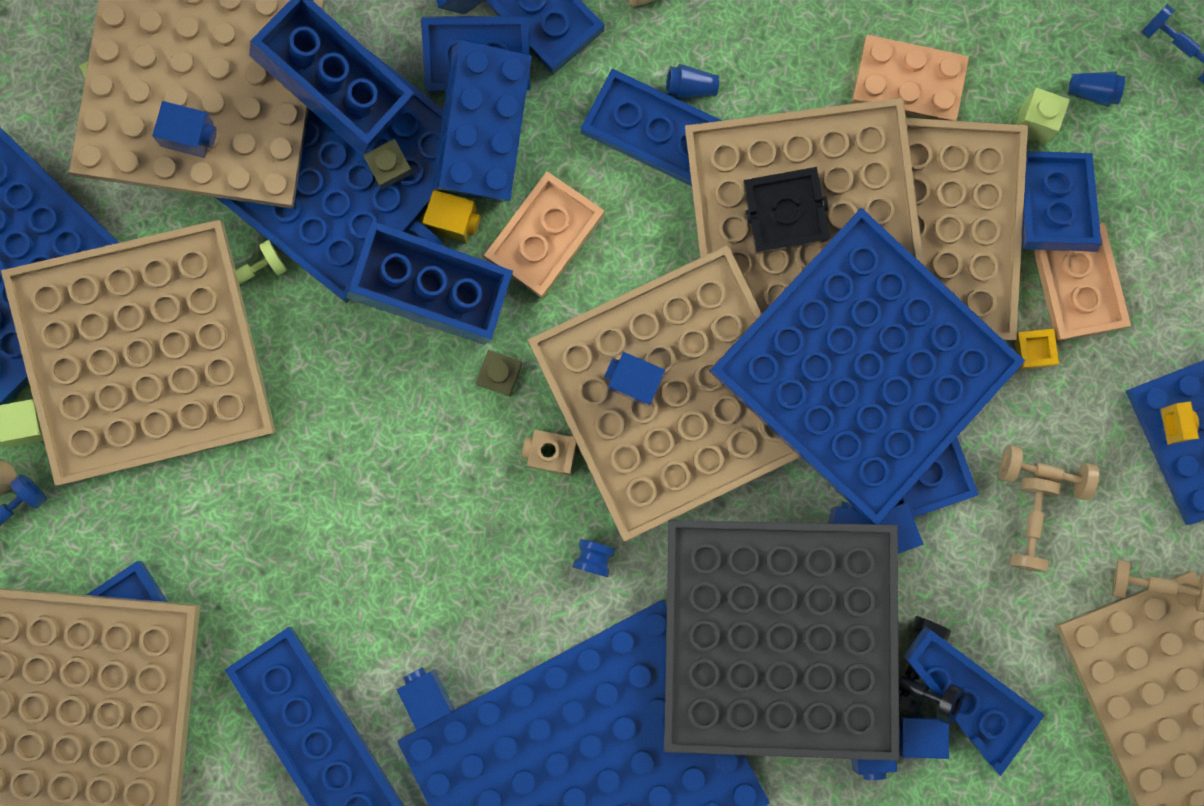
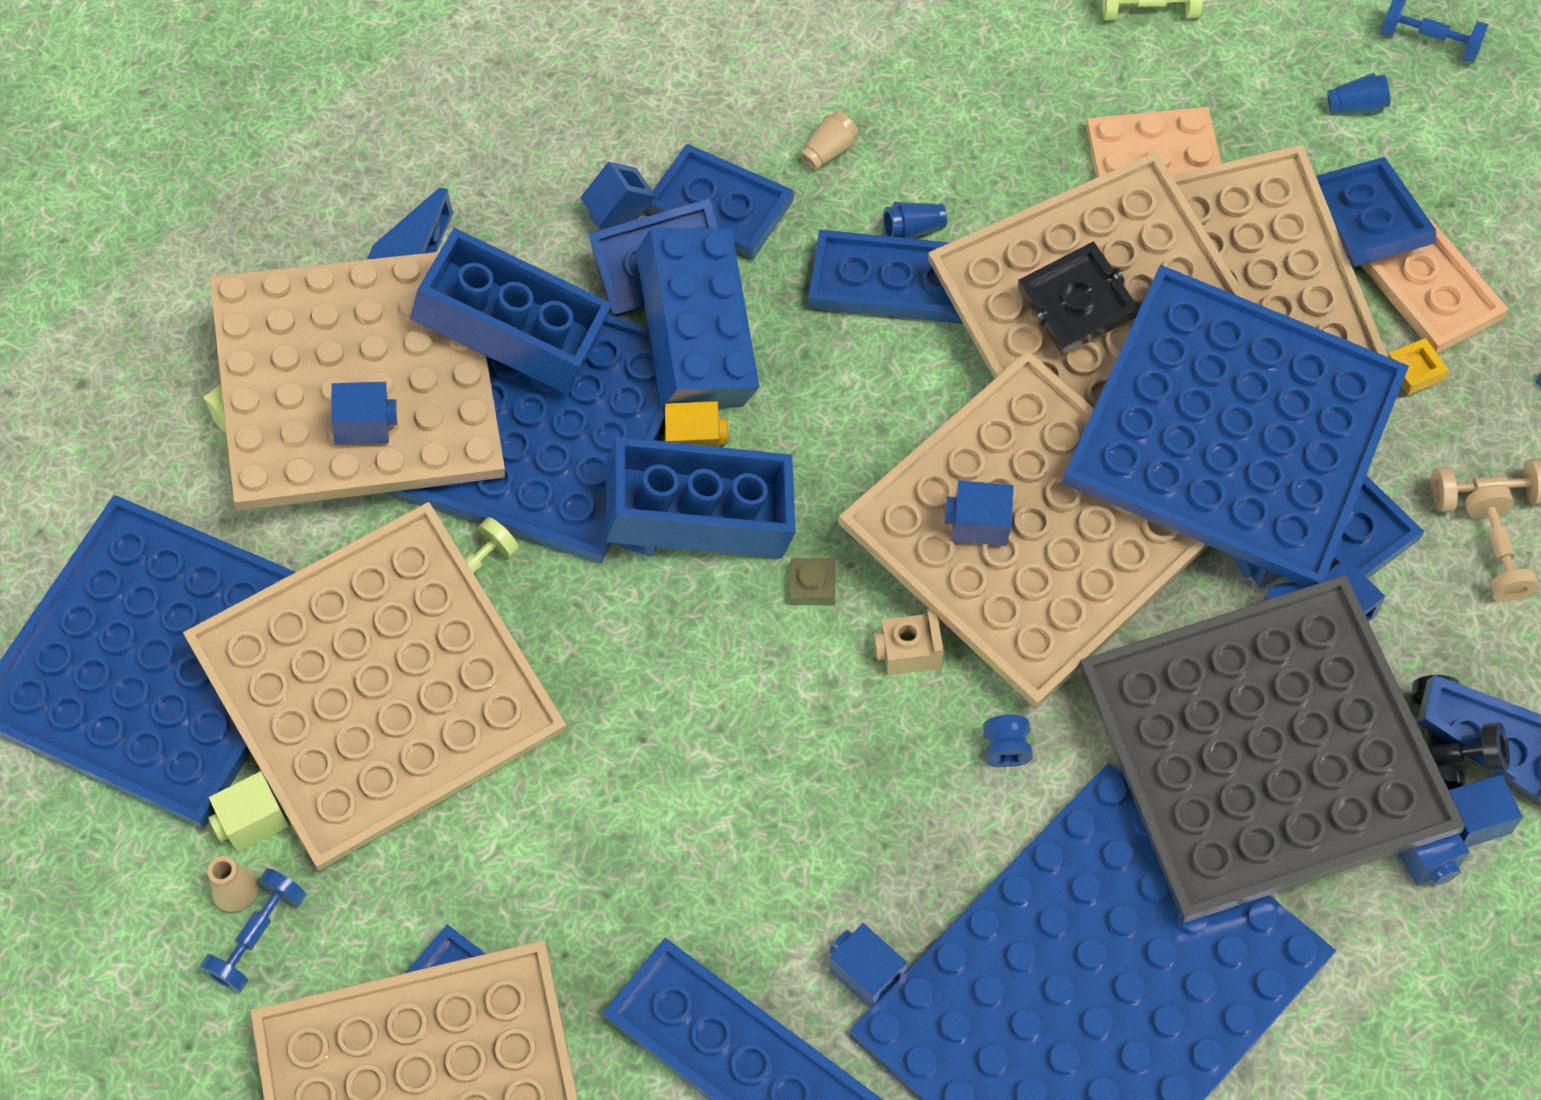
camera: 15 degrees left, 20 degrees down
(388, 164) = (601, 396): olive plate -> none
(545, 234) = (812, 416): light nougat plate -> none
(1042, 114) = (1317, 132): yellowish green brick -> none

